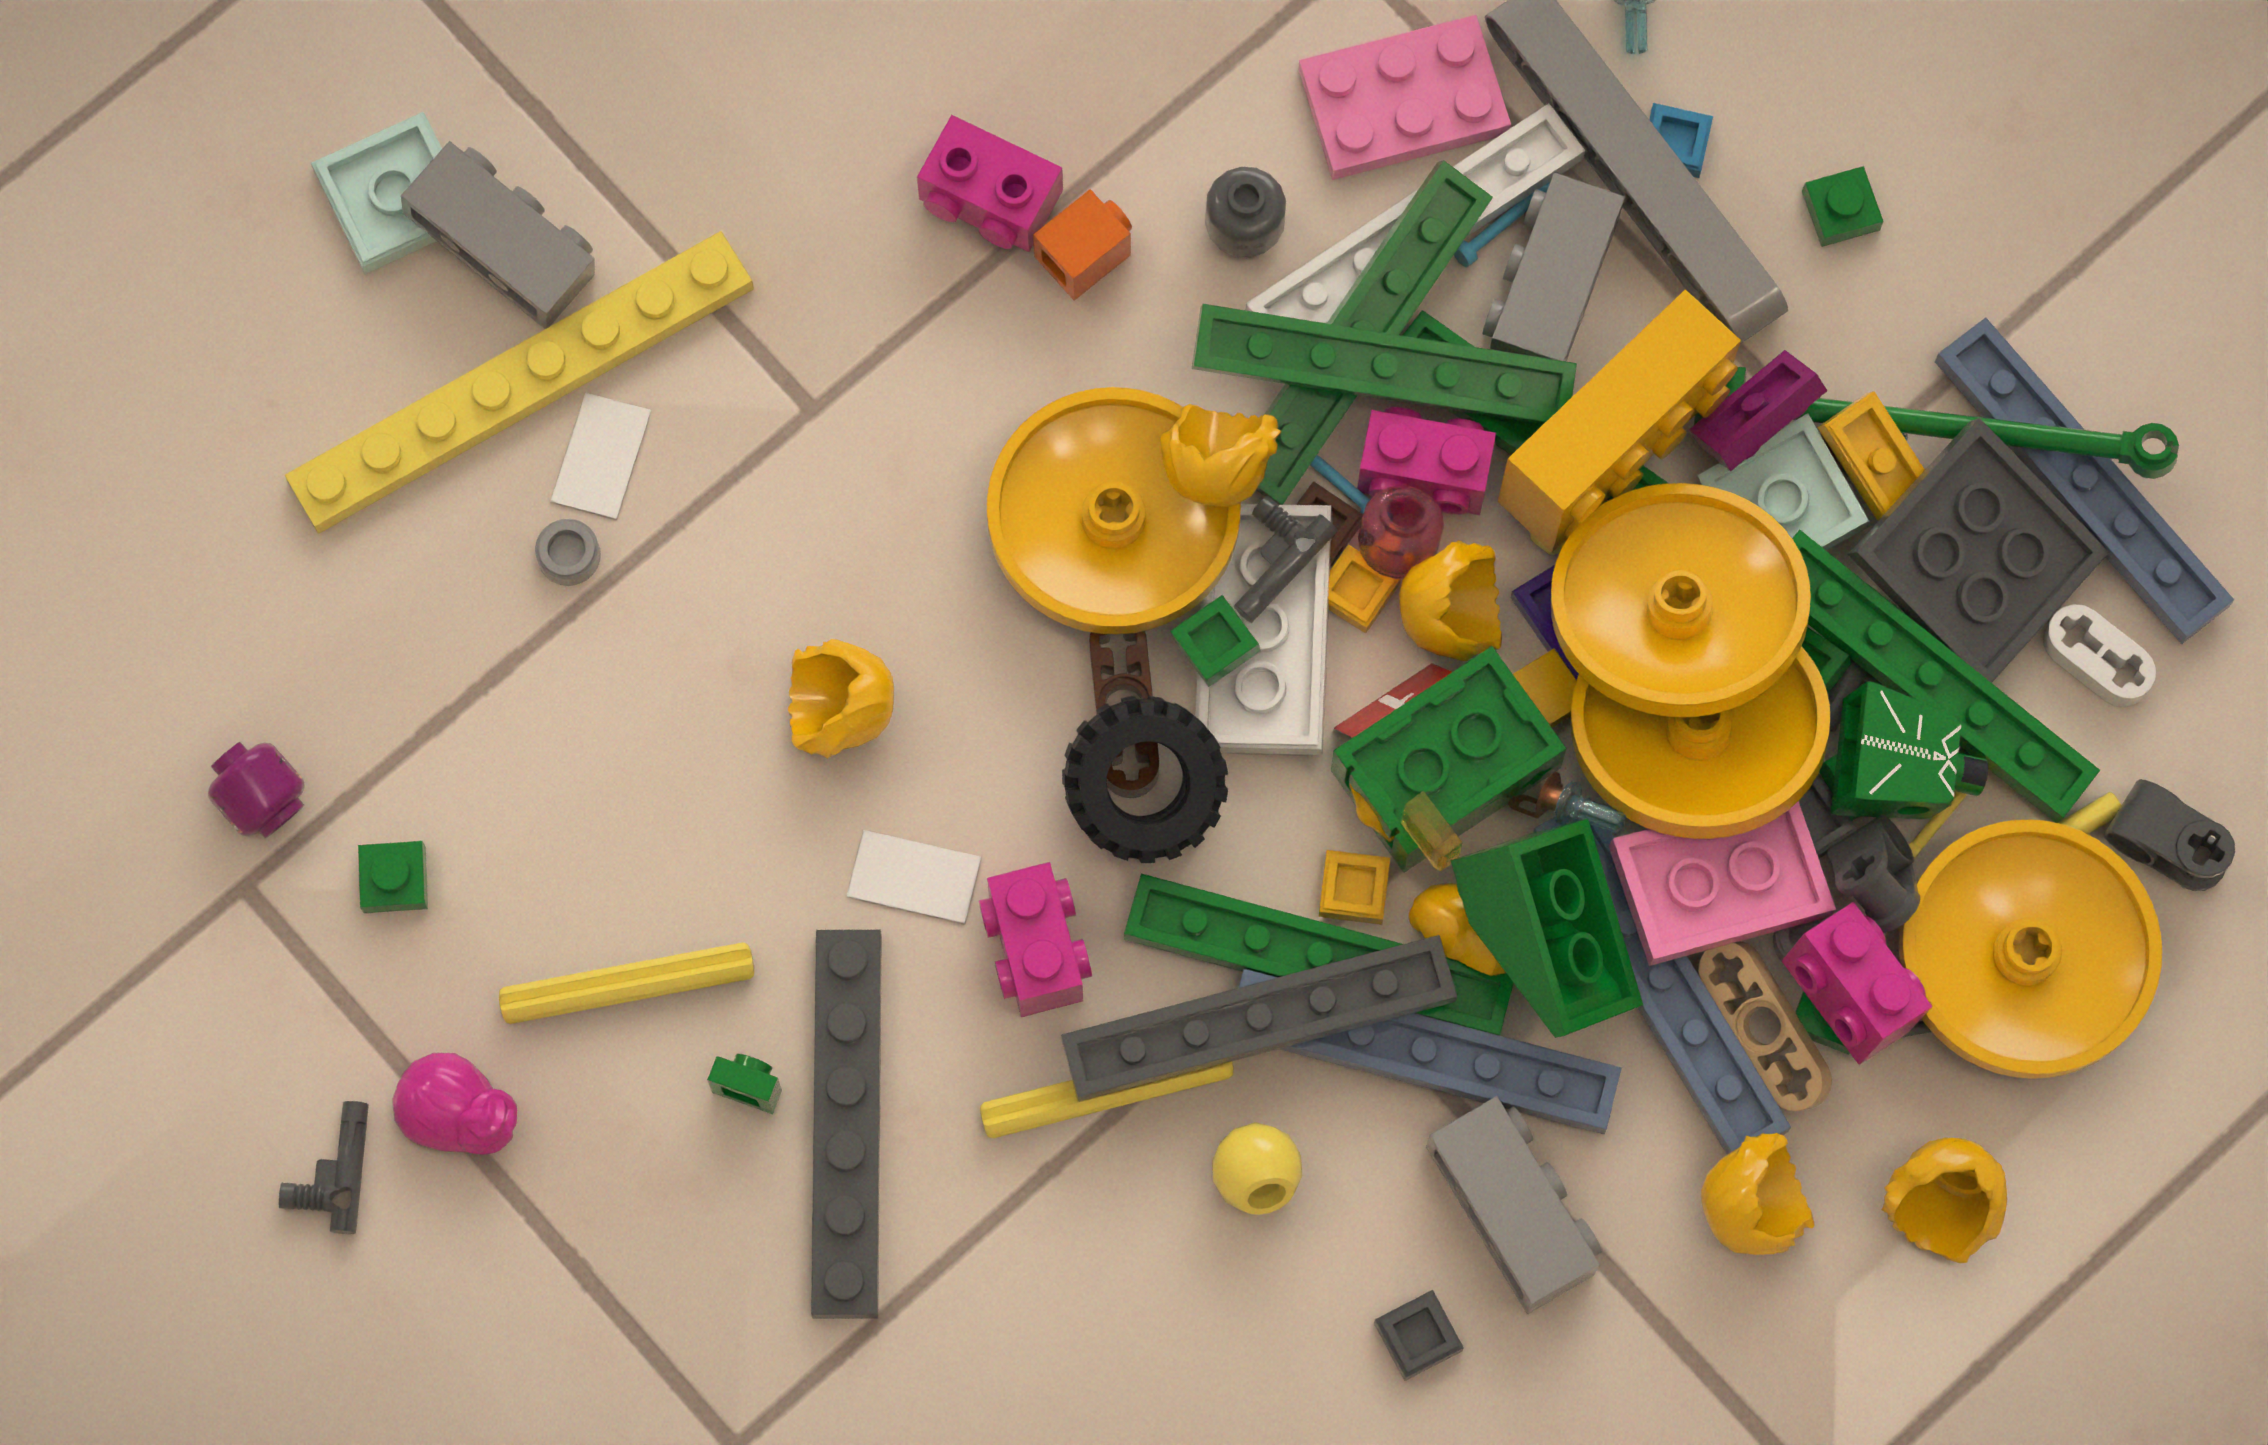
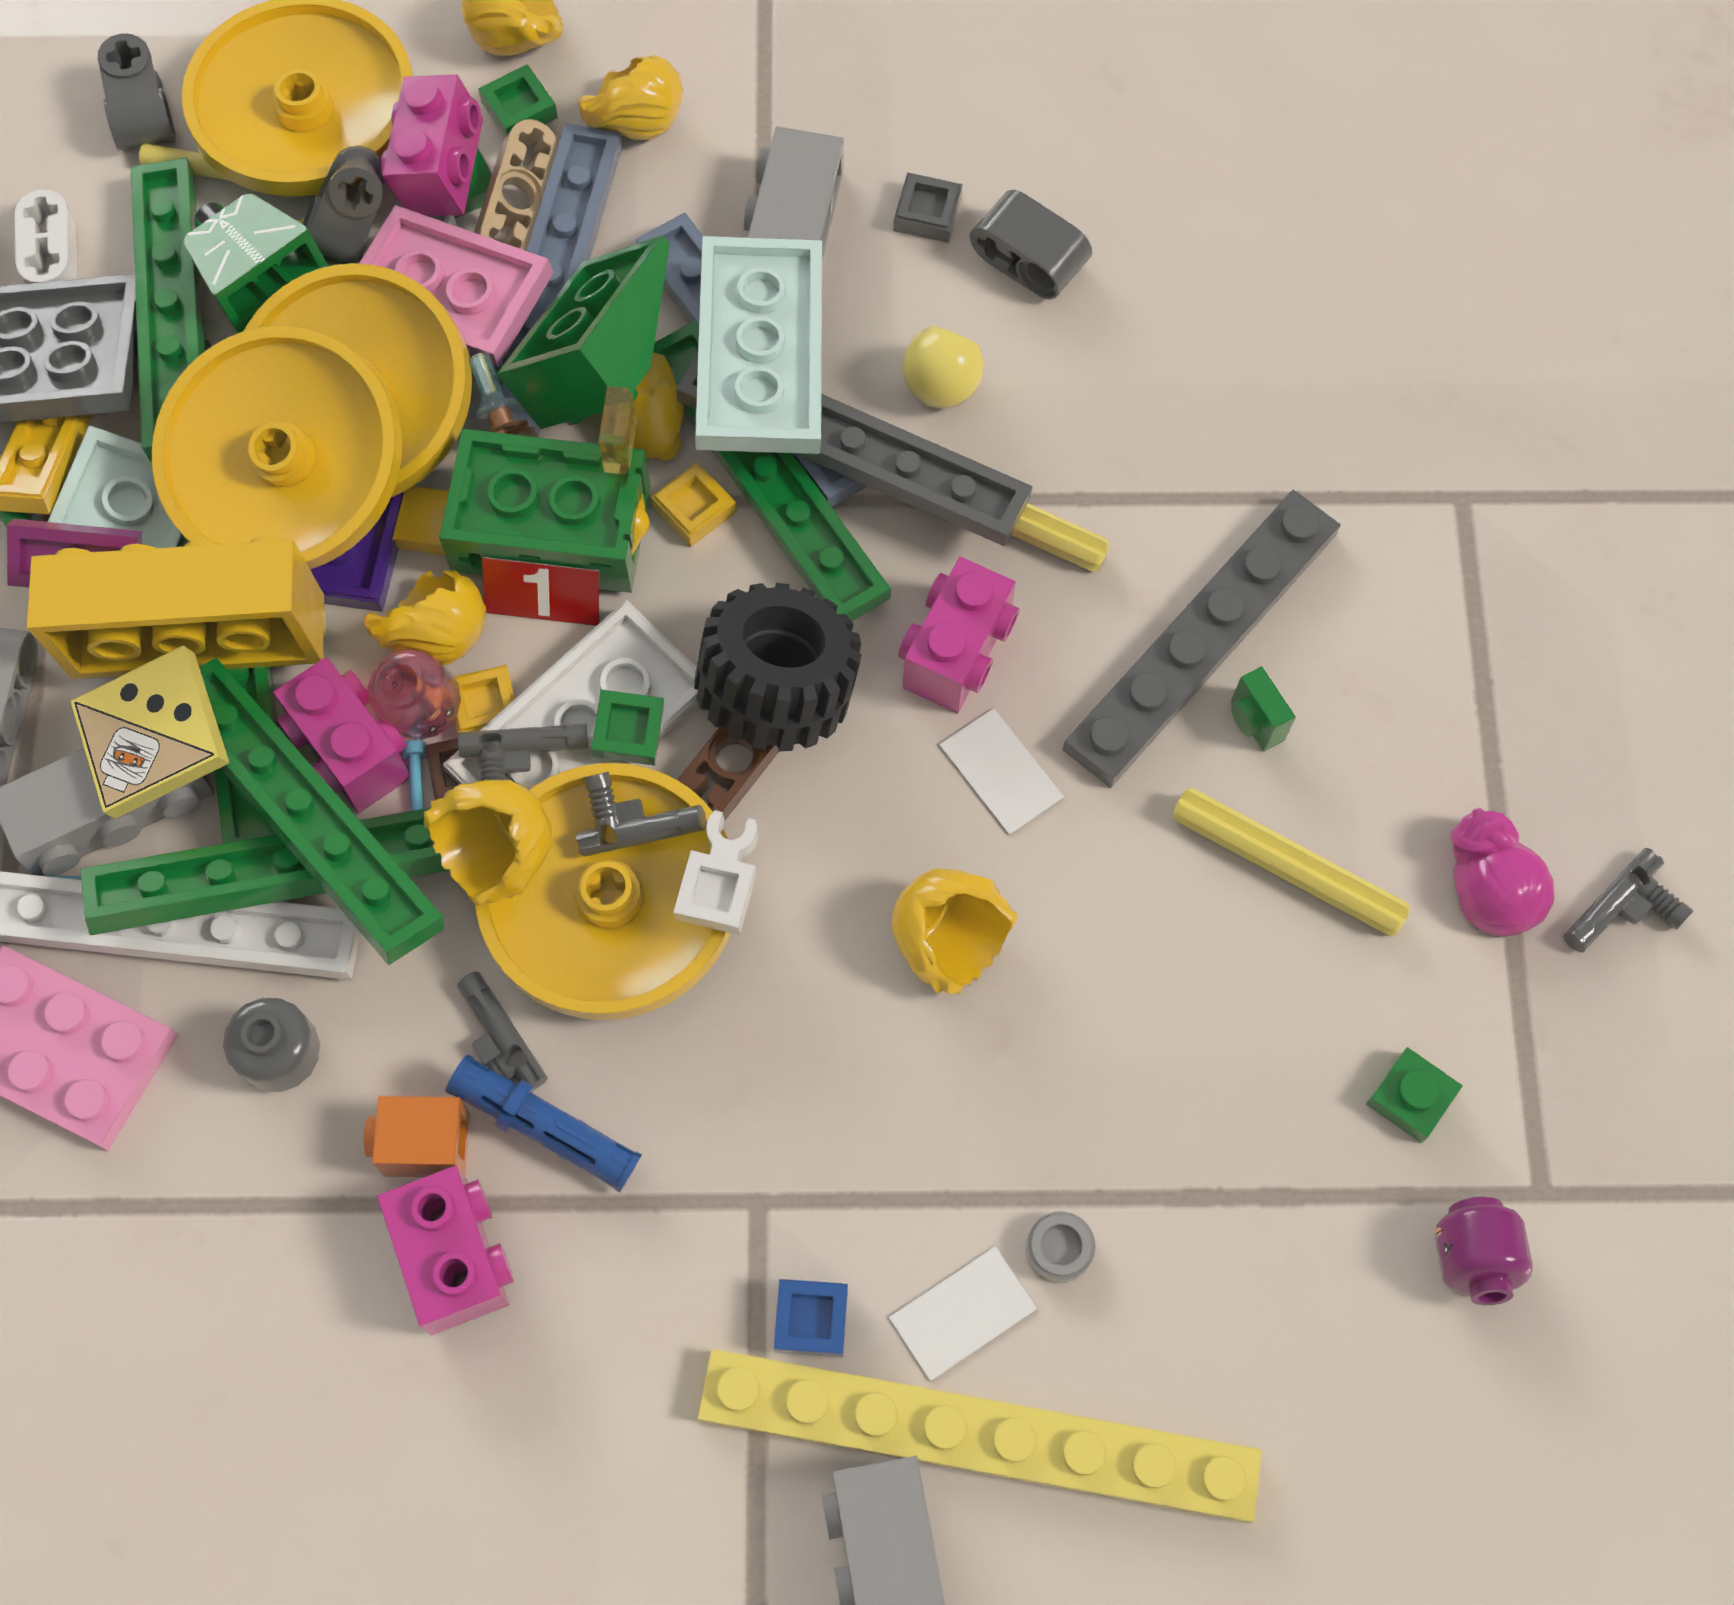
camera: 140 degrees left, 5 degrees down
(701, 355) = (810, 1318): none -> blue plate
(1019, 319) = (554, 1129): none -> blue pin
(1025, 561) = (718, 884): none -> white plate
(1097, 353) = (501, 1037): none -> dark grey hose
(1144, 563) = (629, 820): none -> dark grey hose
(1292, 1362) = (1031, 244): none -> dark grey beam
(1401, 1018) = (760, 345): none -> light aqua plate
(1545, 321) = (149, 732): none -> tile
(1856, 1119) = (517, 98): none -> green plate

